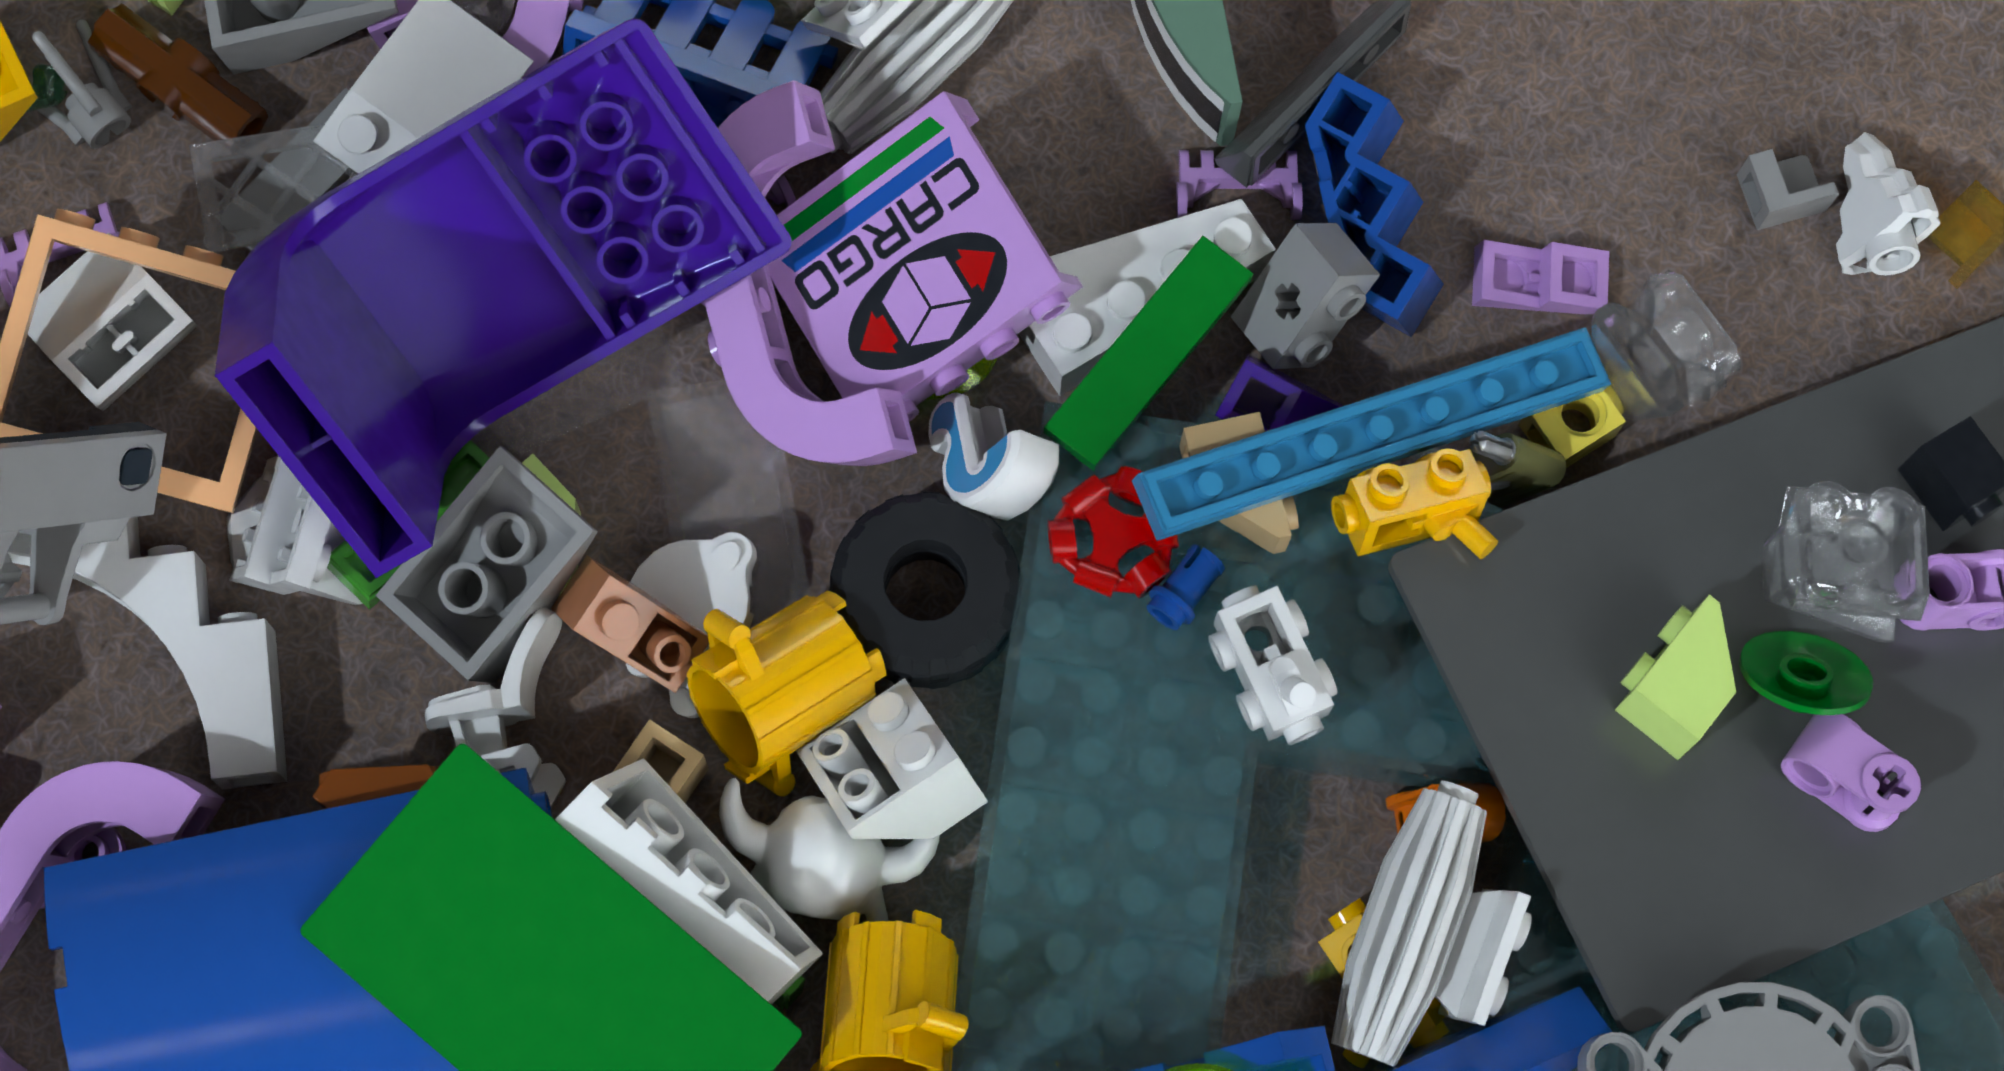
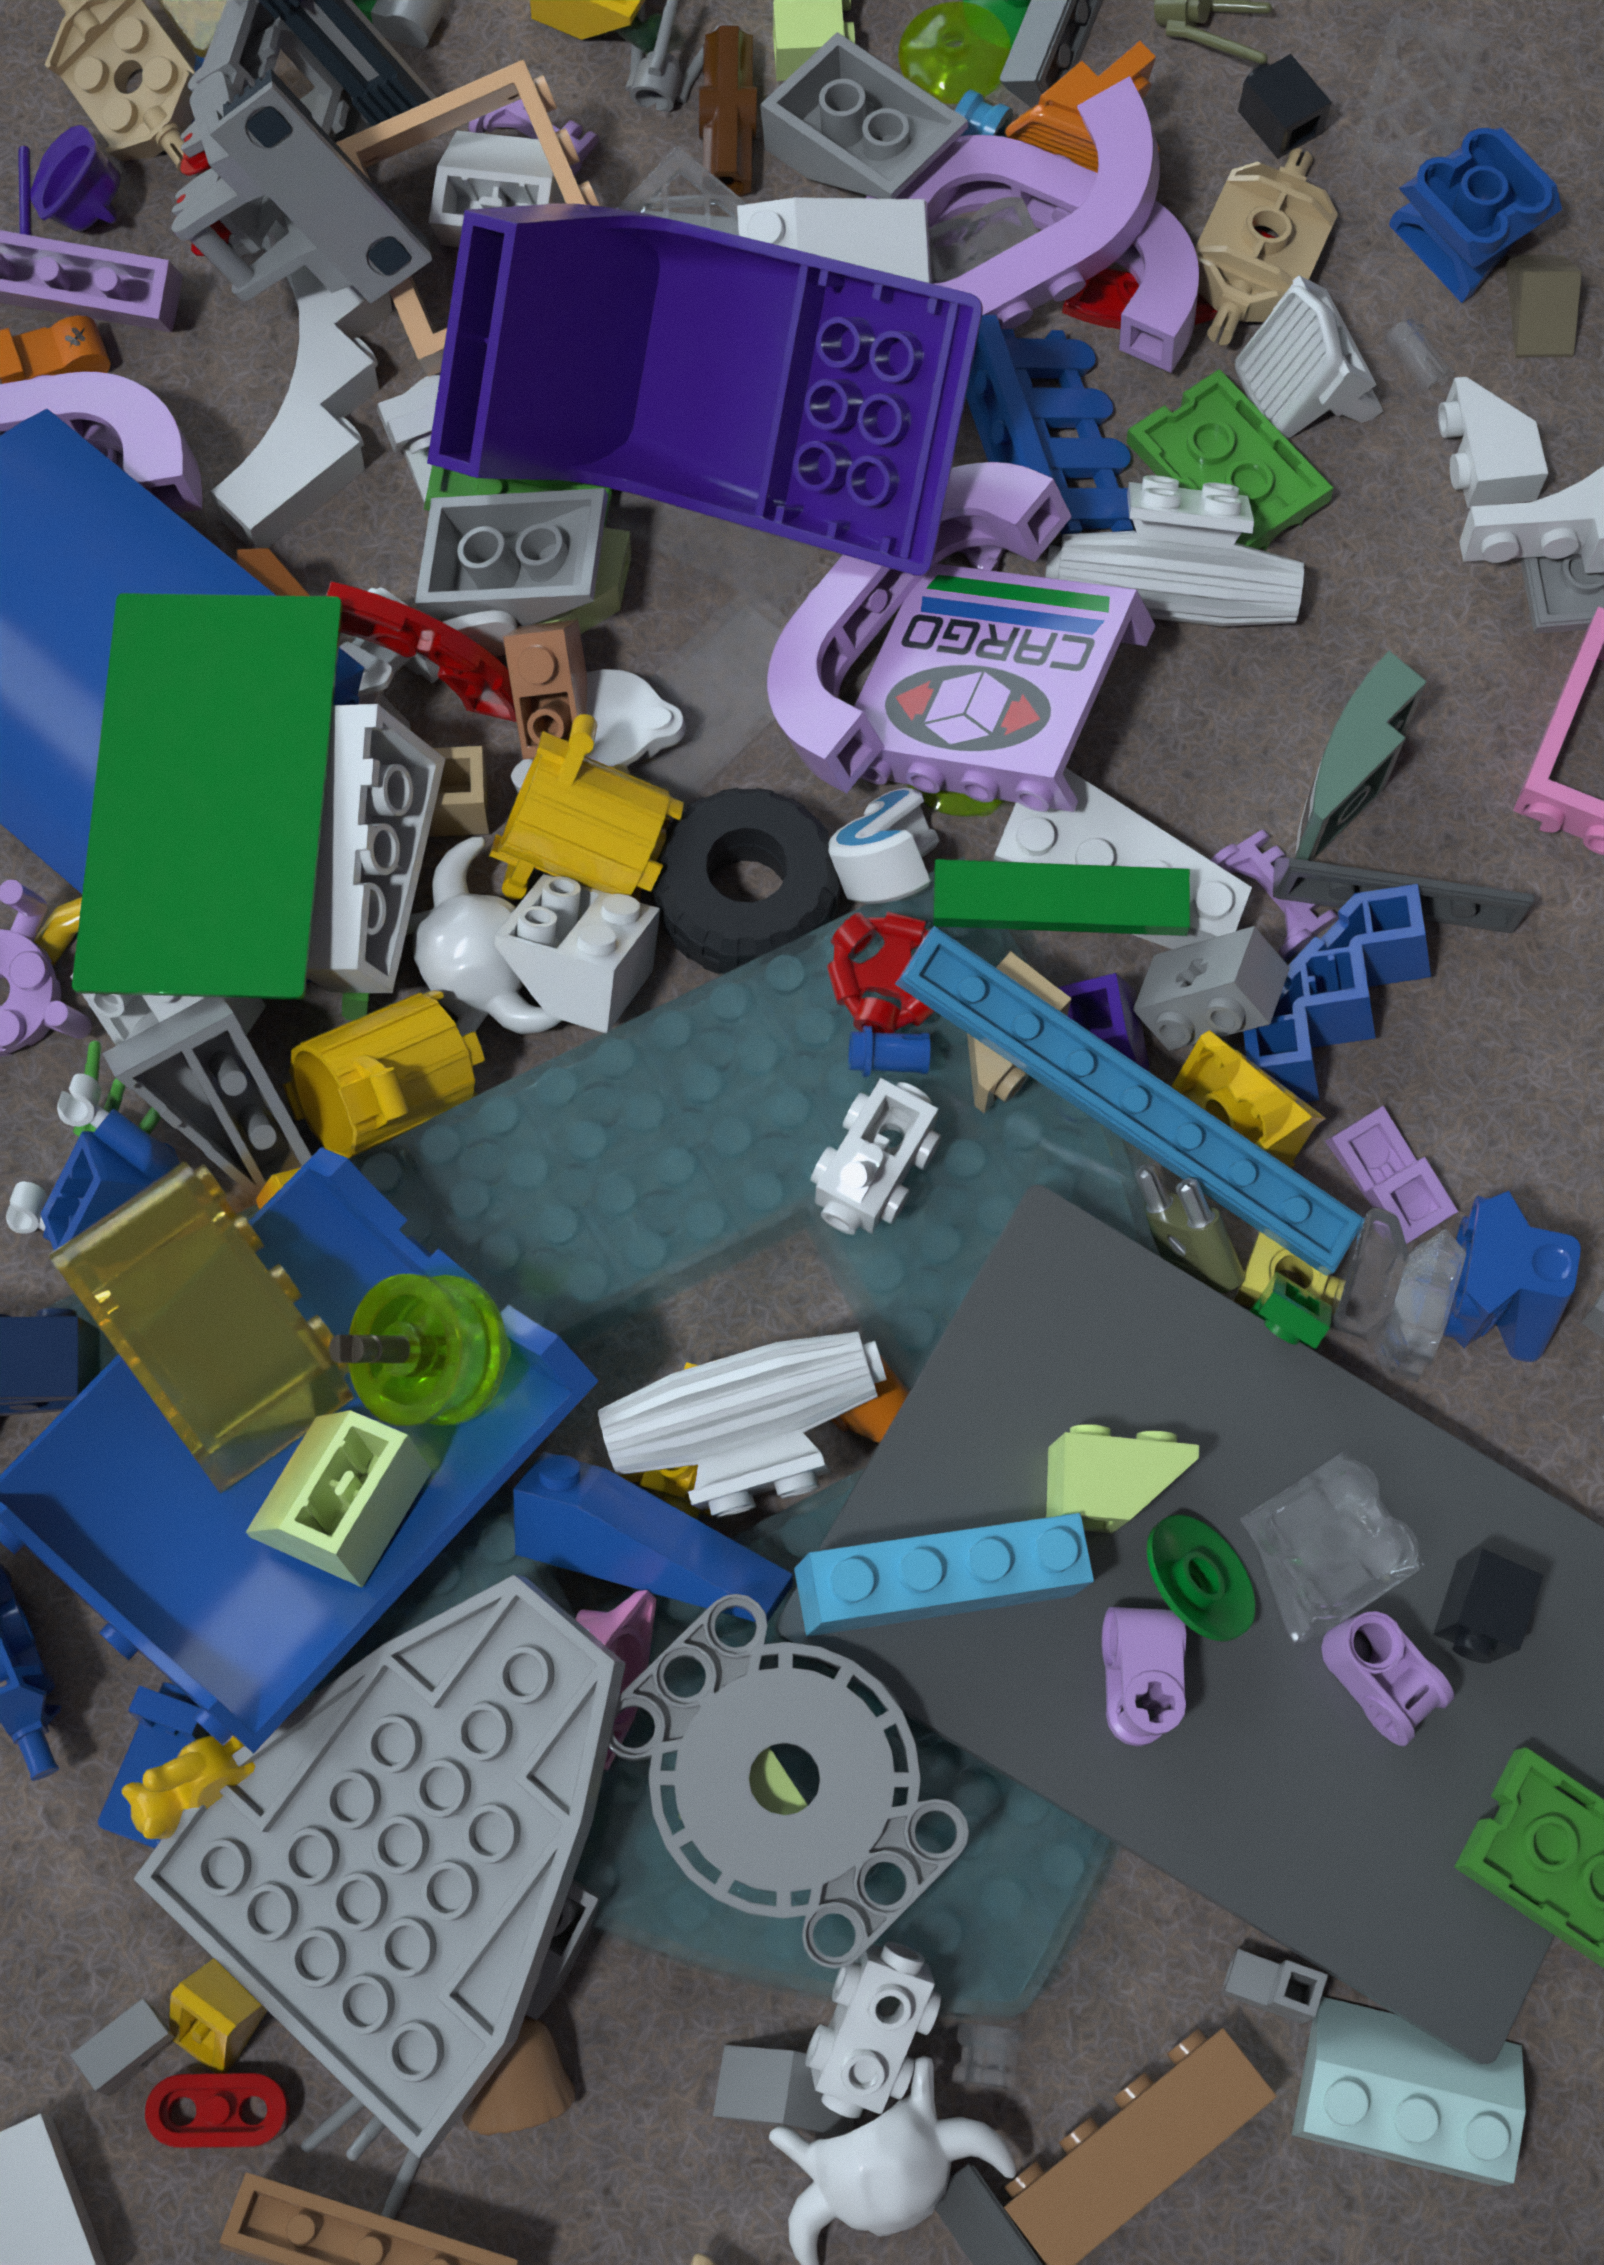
camera: 55 degrees right, 5 degrees down
(554, 684) = (463, 664): none -> red tile
(1415, 345) = (1246, 1098): none -> yellow slope
(1417, 502) = (1096, 1173): yellow brick -> none
(1627, 440) = (1293, 1312): none -> green bracket
(1681, 871) = (943, 1574): none -> medium azure brick
(1711, 240) = (1511, 1278): none -> blue piece

